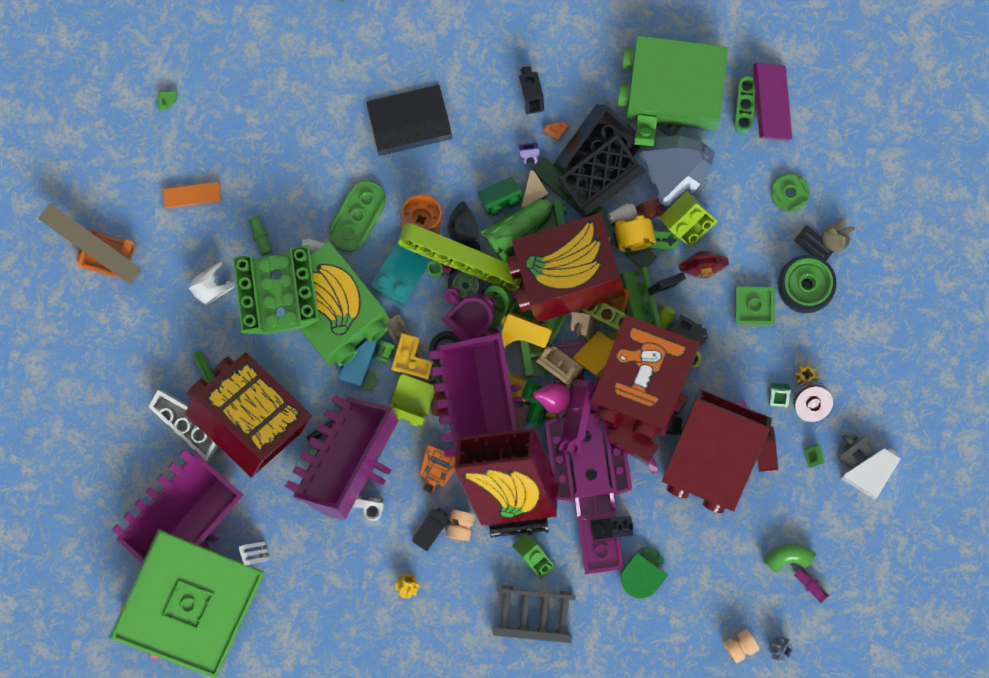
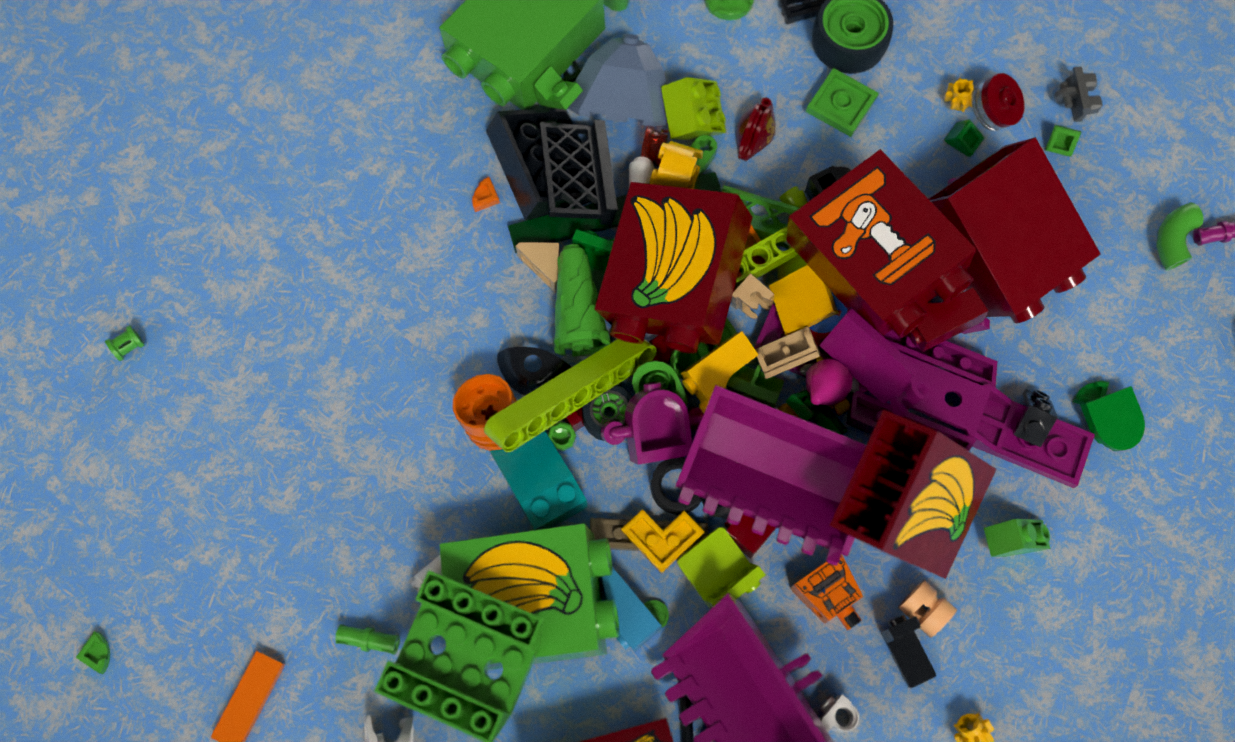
camera: 60 degrees left, 10 degrees down
(357, 216) = (428, 494): bright green tile -> none
(384, 352) = (622, 564): bright green bush -> none
(409, 120) = (352, 355): black slope -> none
(500, 196) = (523, 301): green slope -> none
(527, 526) = (965, 552): black pin -> none
(529, 150) = (488, 238): tile -> none
(531, 91) = (419, 190): black torso -> none
(542, 632) = (1131, 588): dark grey fence -> none
(666, 283) = (759, 175): black tile -> none
(873, 473) = (1121, 90): white slope -> none

